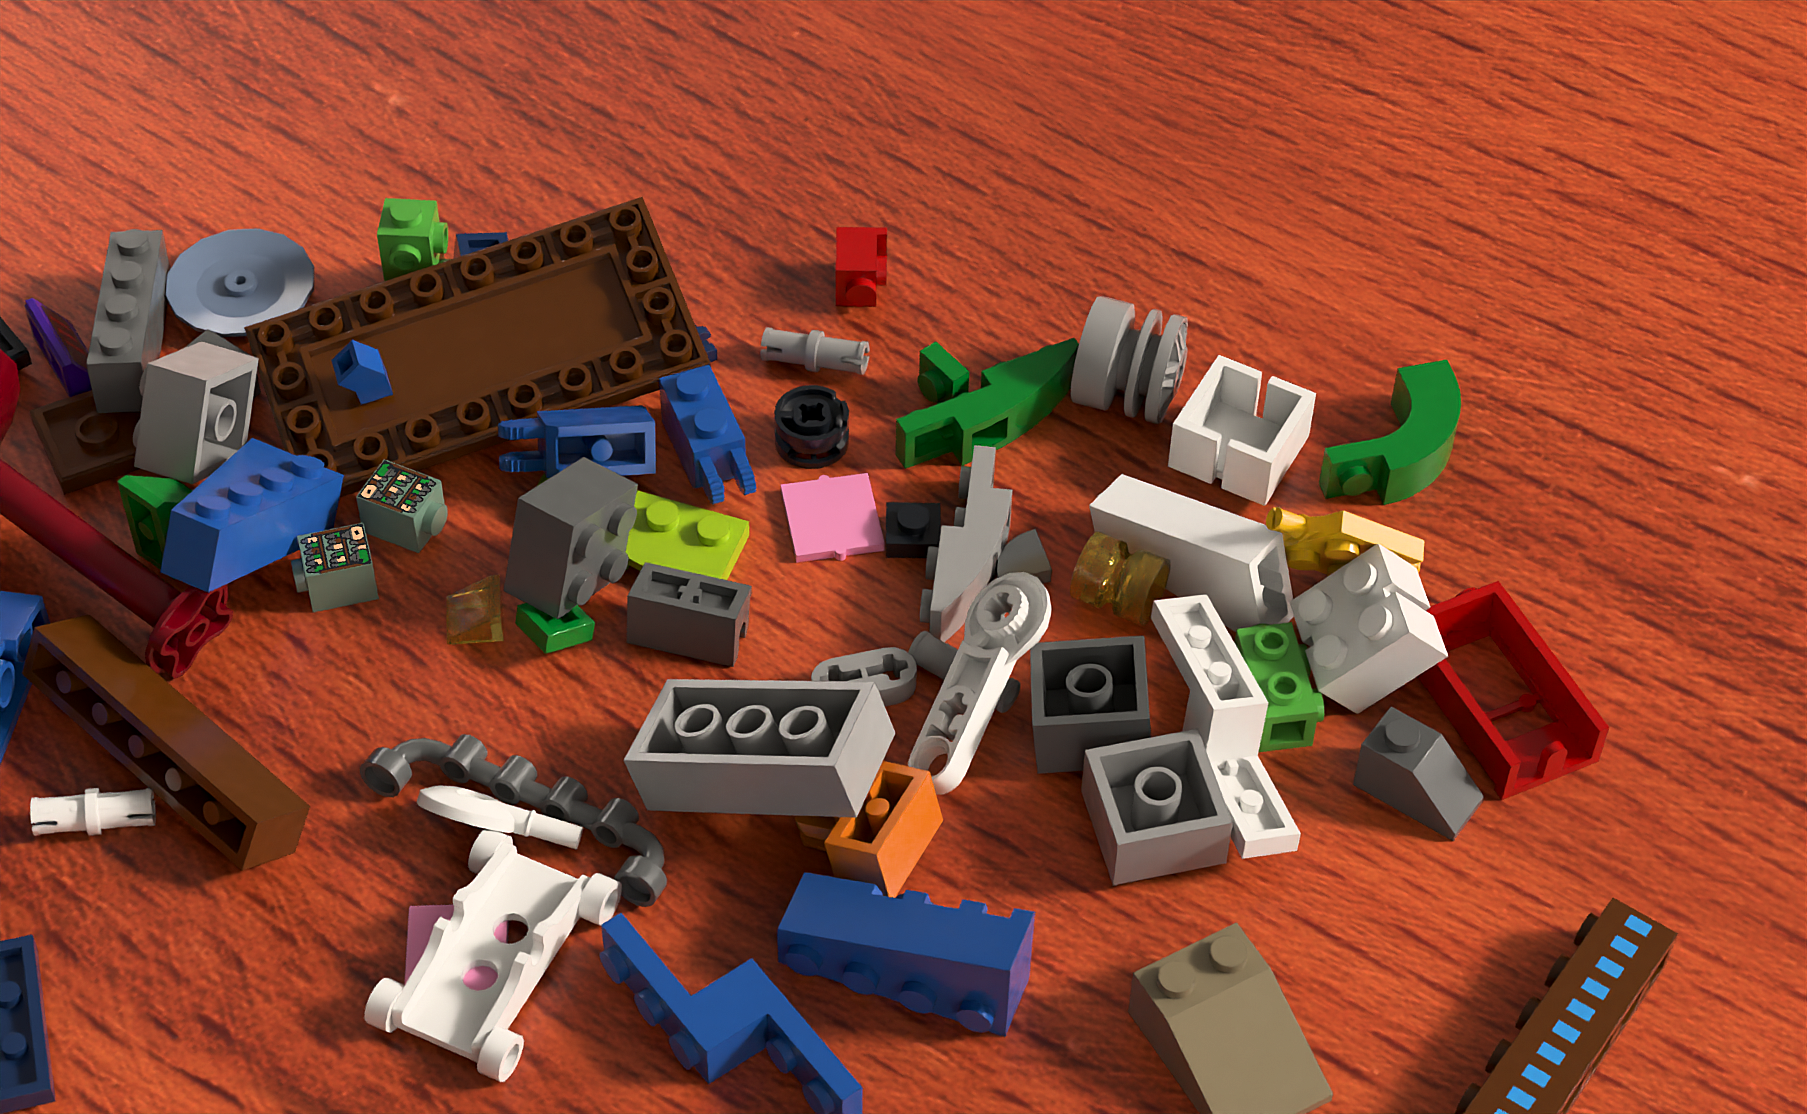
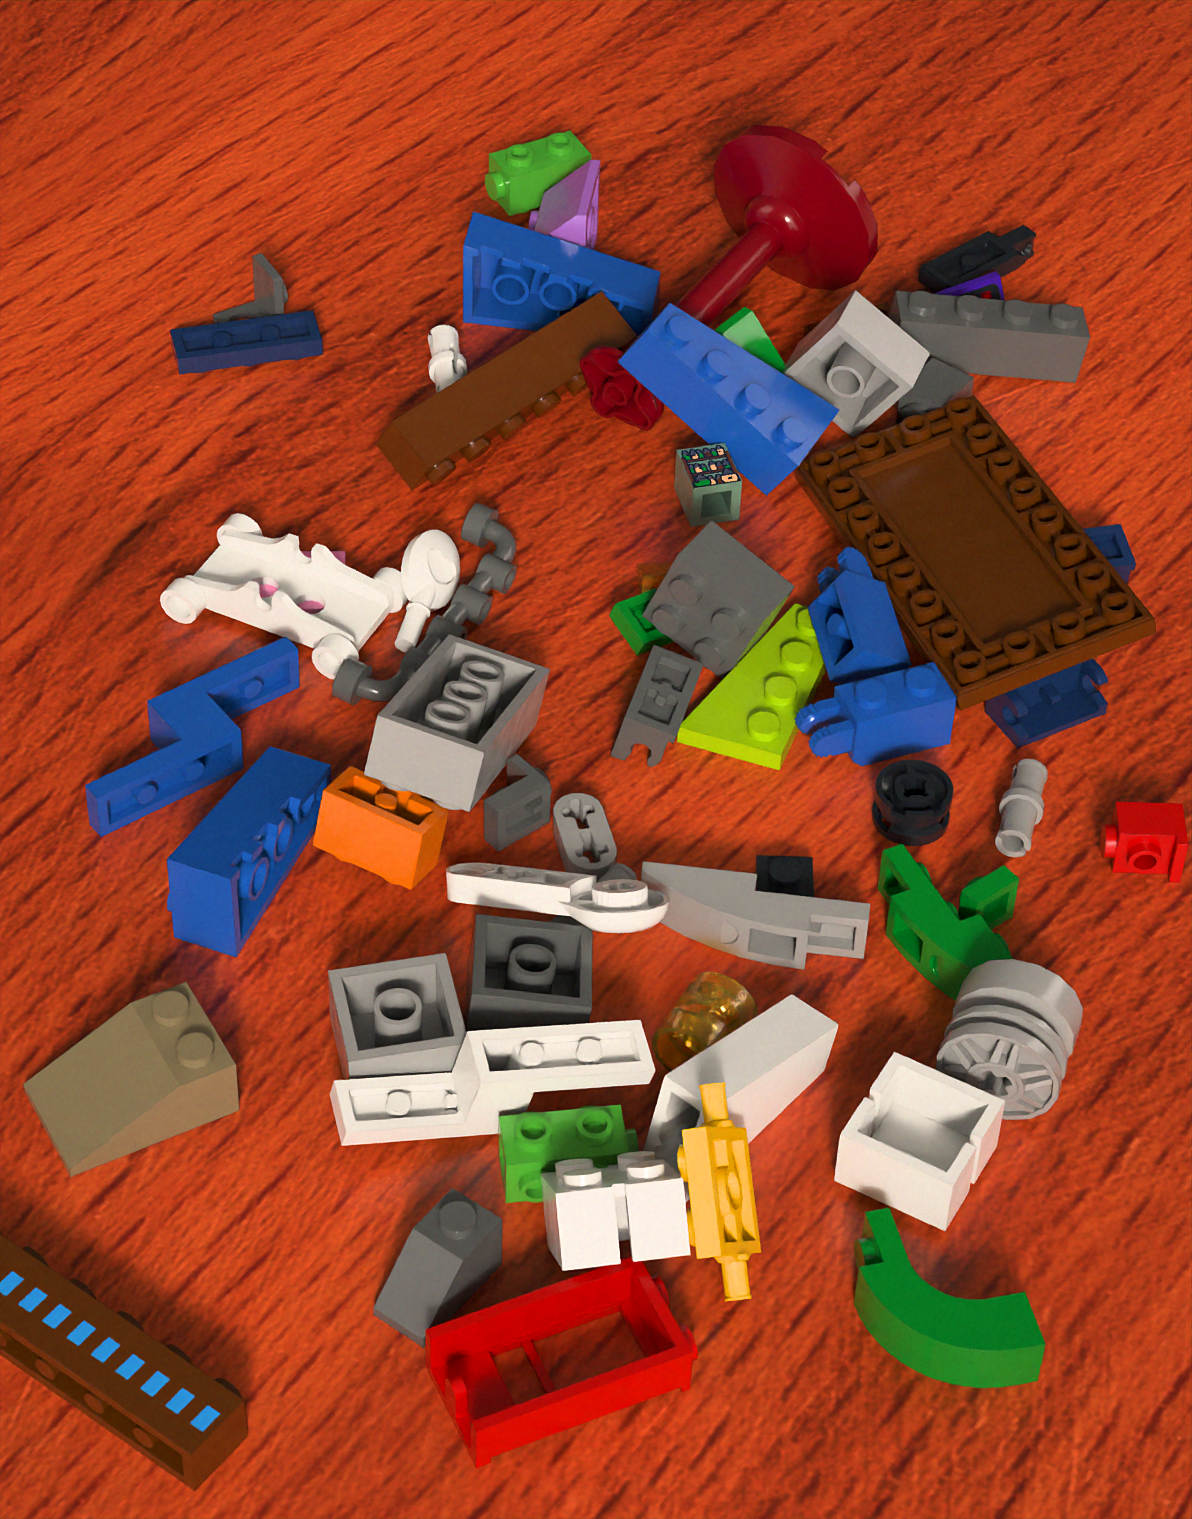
camera: 90 degrees right, 5 degrees down
(239, 280) = (1060, 411): sand blue piece -> none
(363, 371) = (915, 464): blue piece -> none
(402, 506) = (783, 520): sand green brick -> none
(410, 236) = (1095, 484): bright green brick -> none
(832, 517) = (803, 825): bright pink piece -> none
(1025, 555) = (745, 964): dark grey tile -> none

